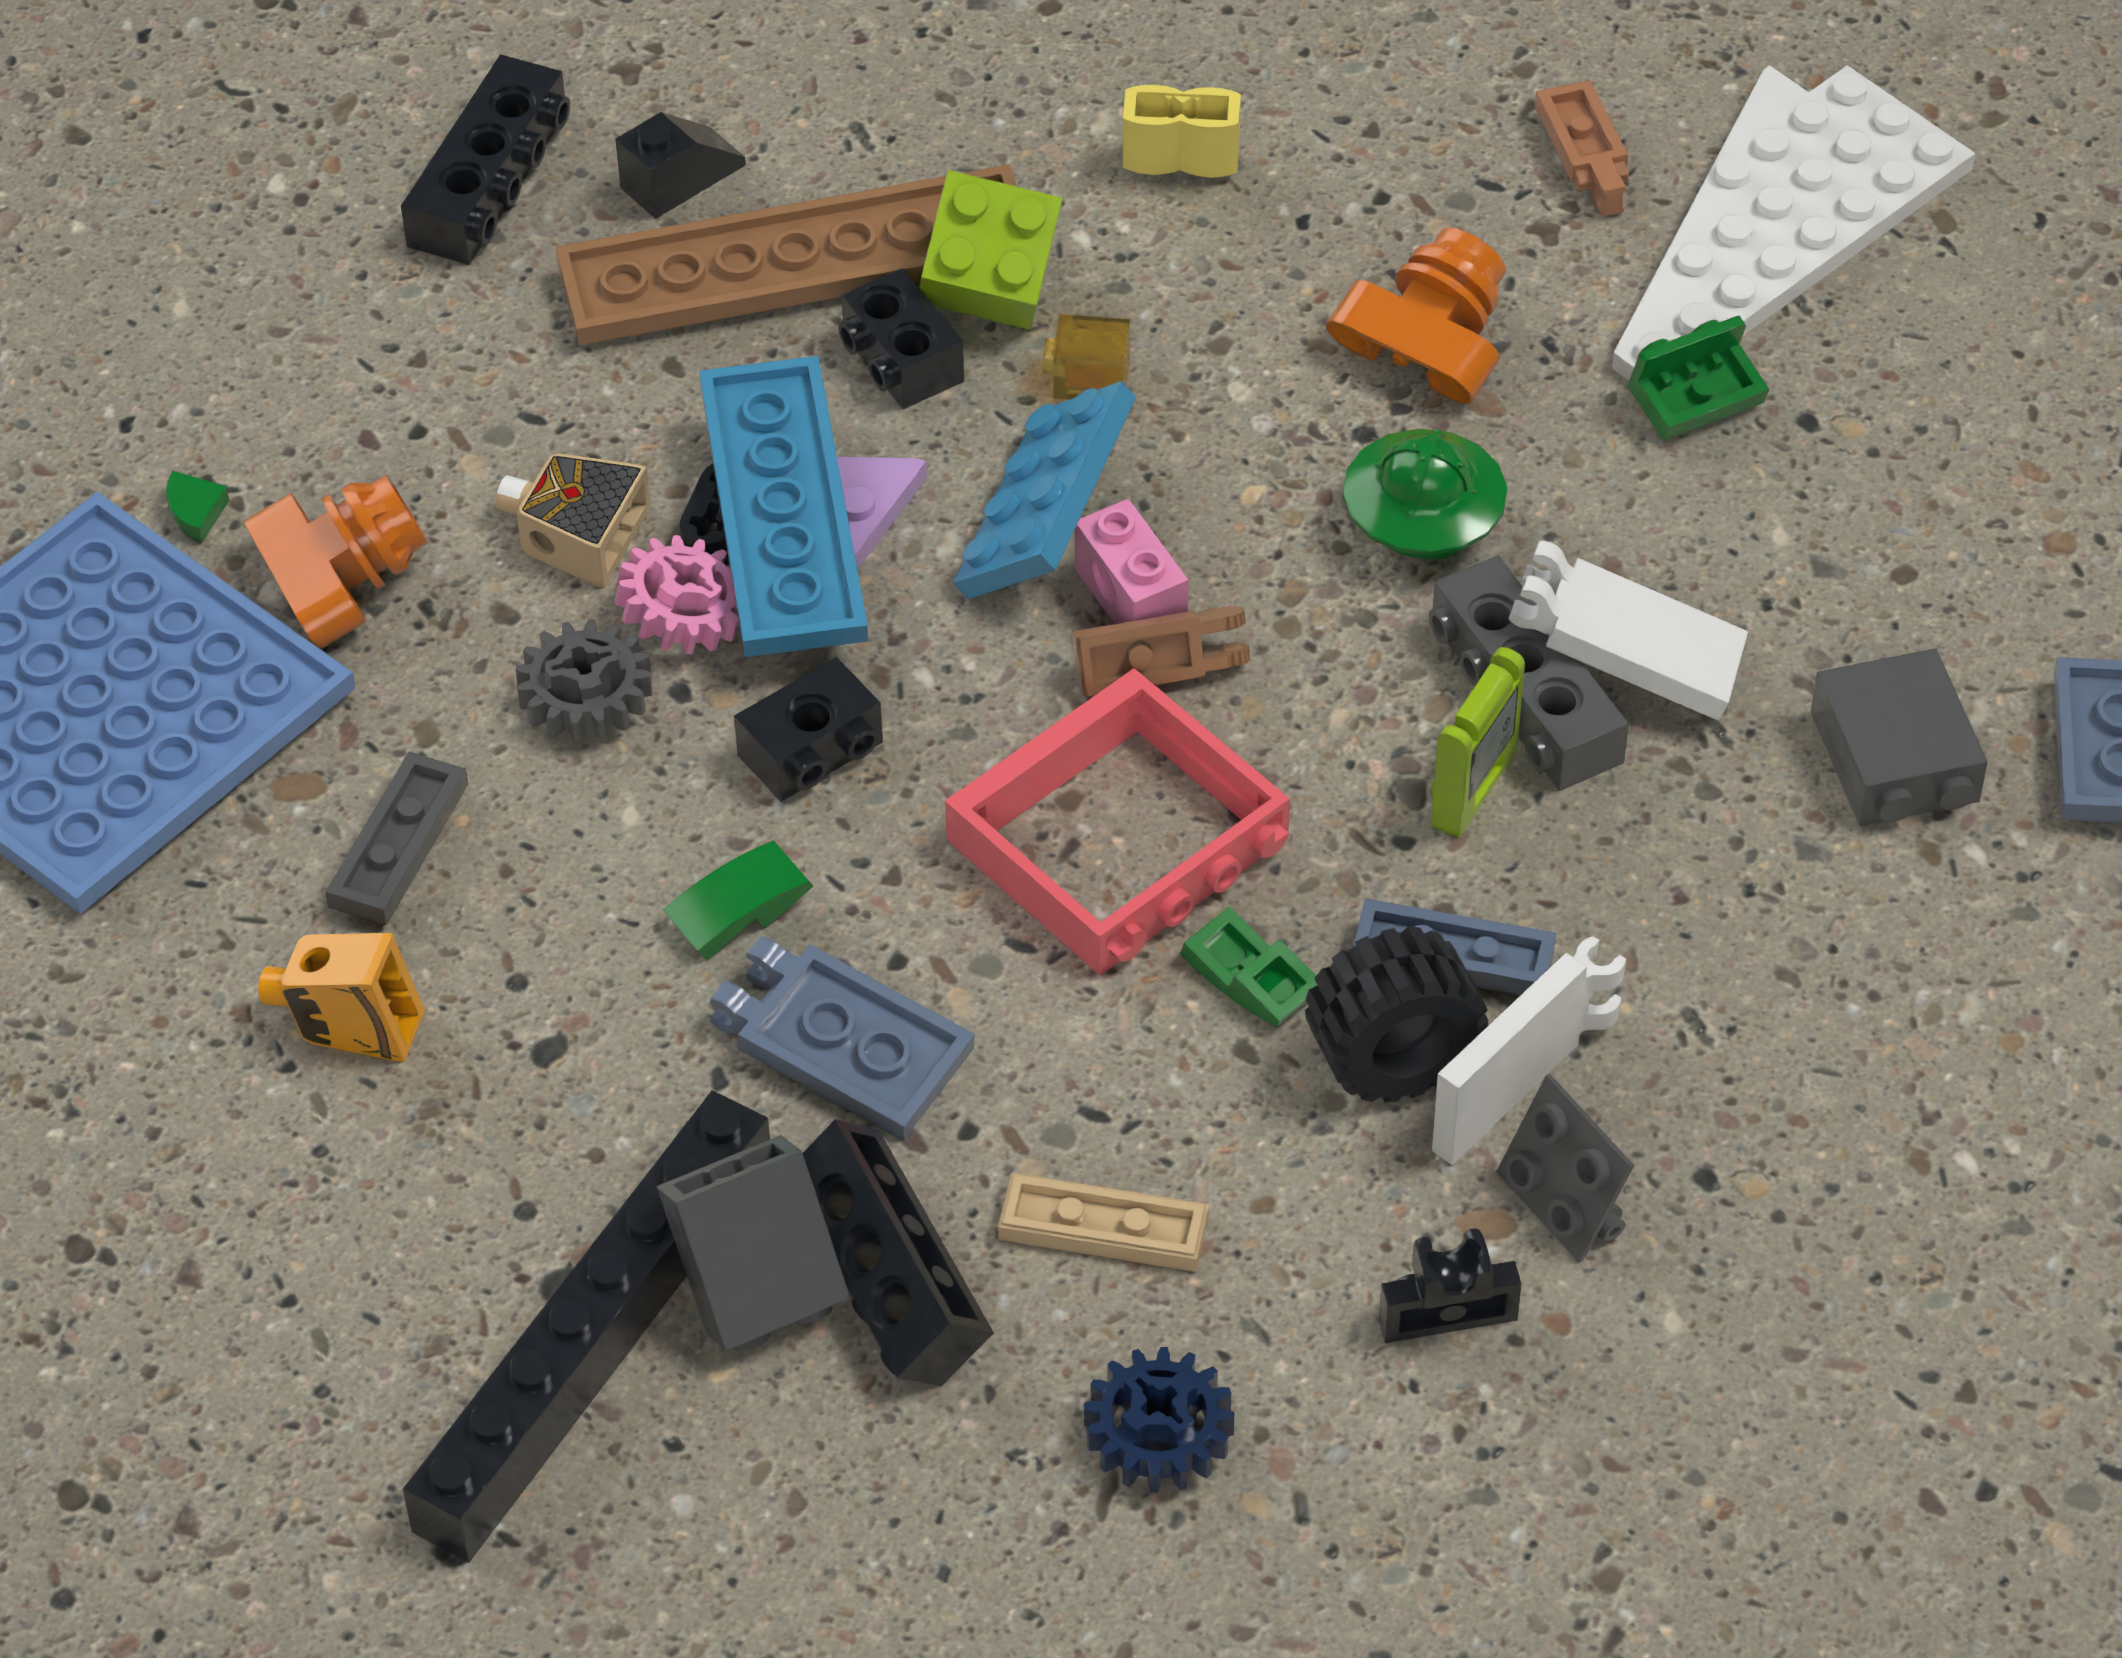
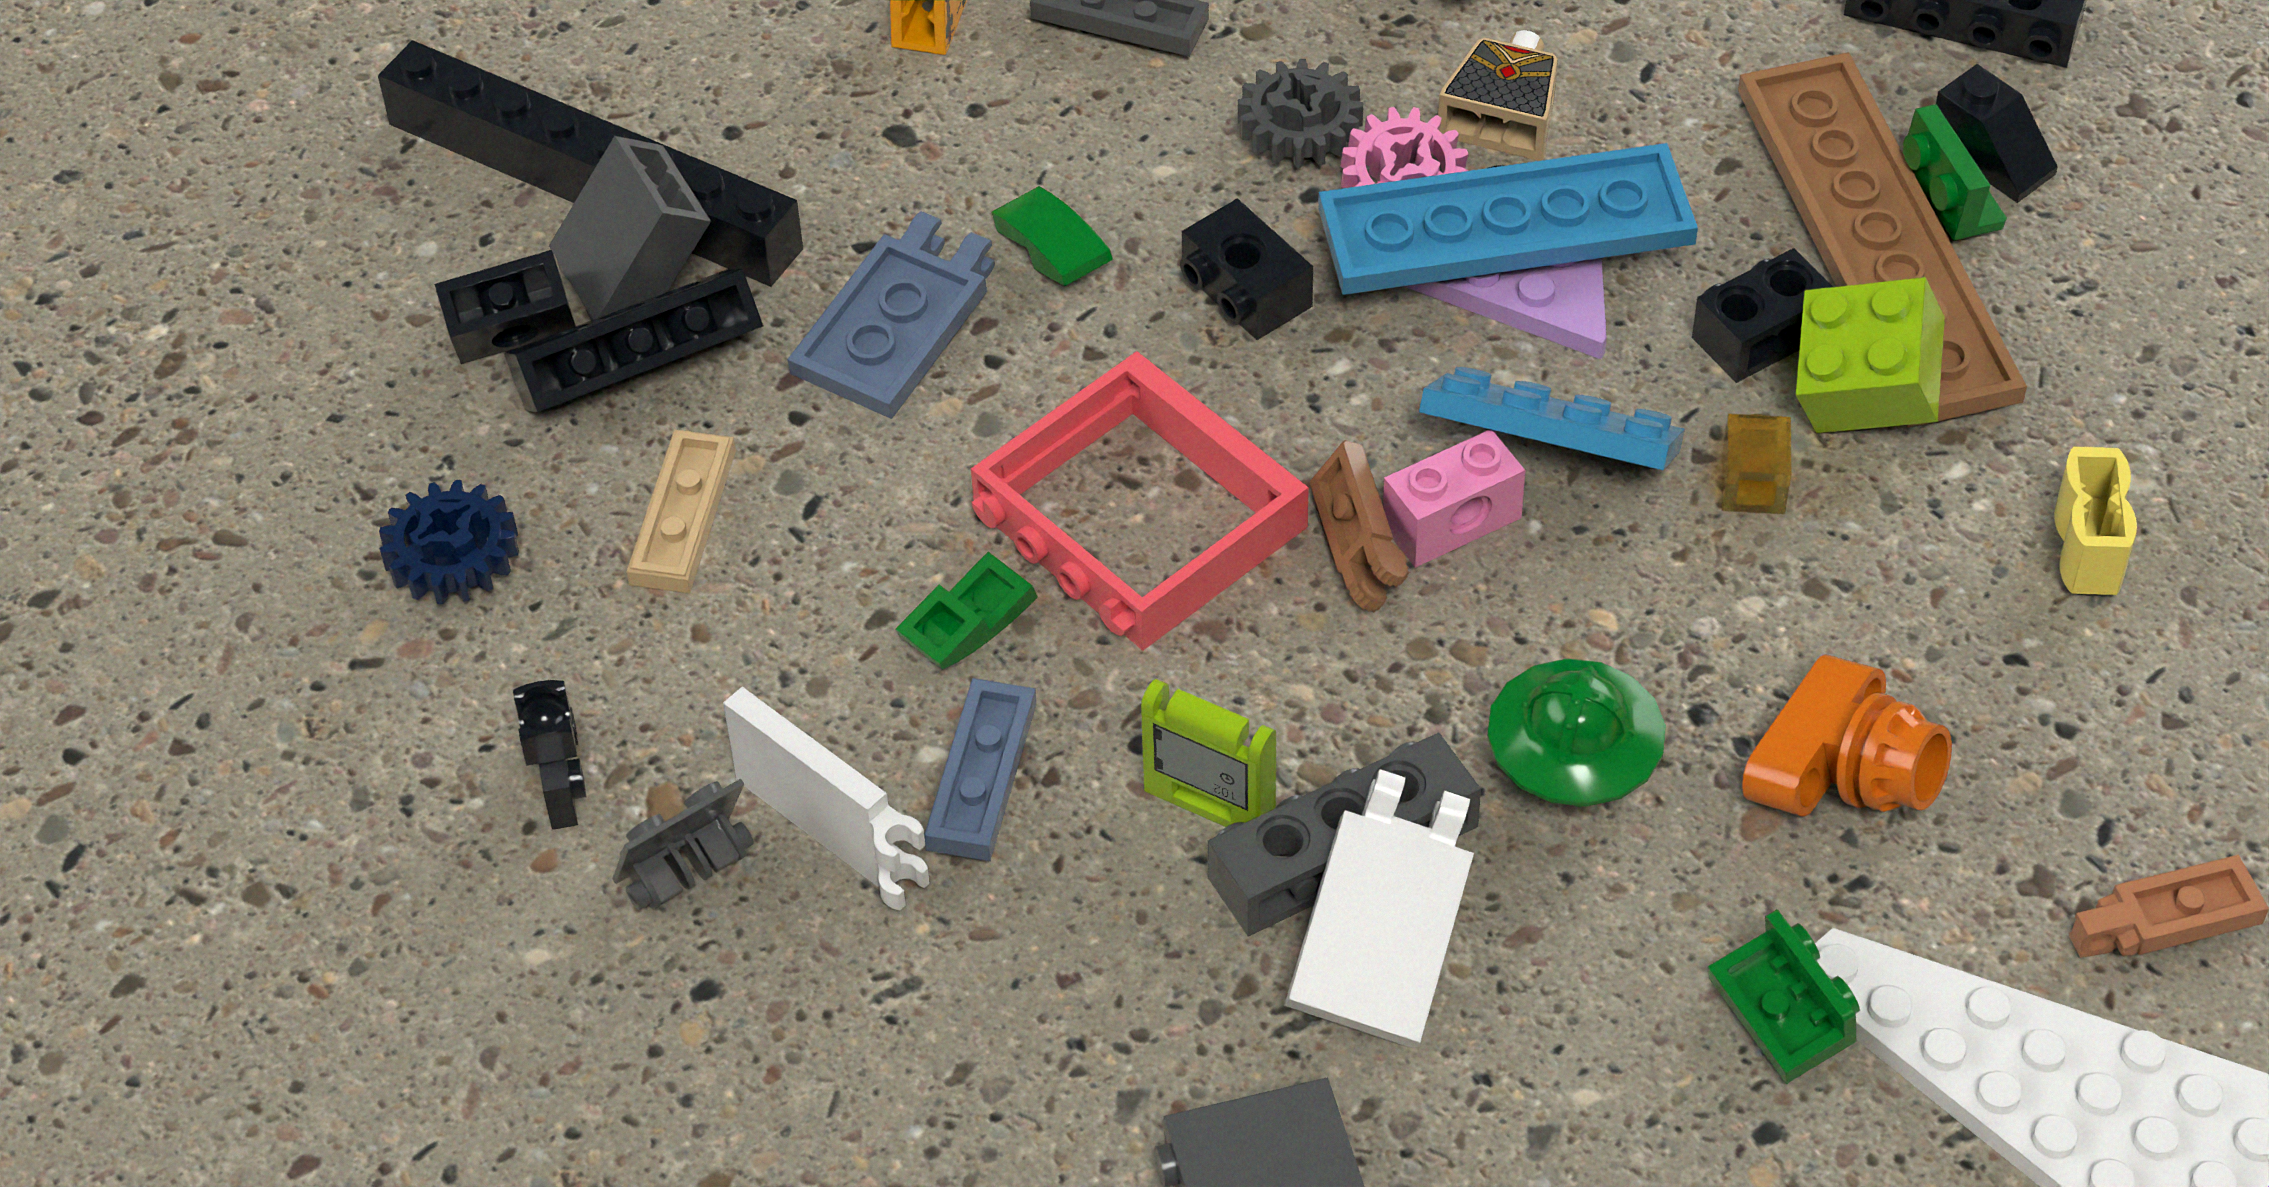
camera: 90 degrees right, 0 degrees up
(741, 181) = (1950, 176): none -> green bracket
(832, 1375) = (504, 306): none -> black brick
(1394, 1013) = (857, 683): black tyre -> none

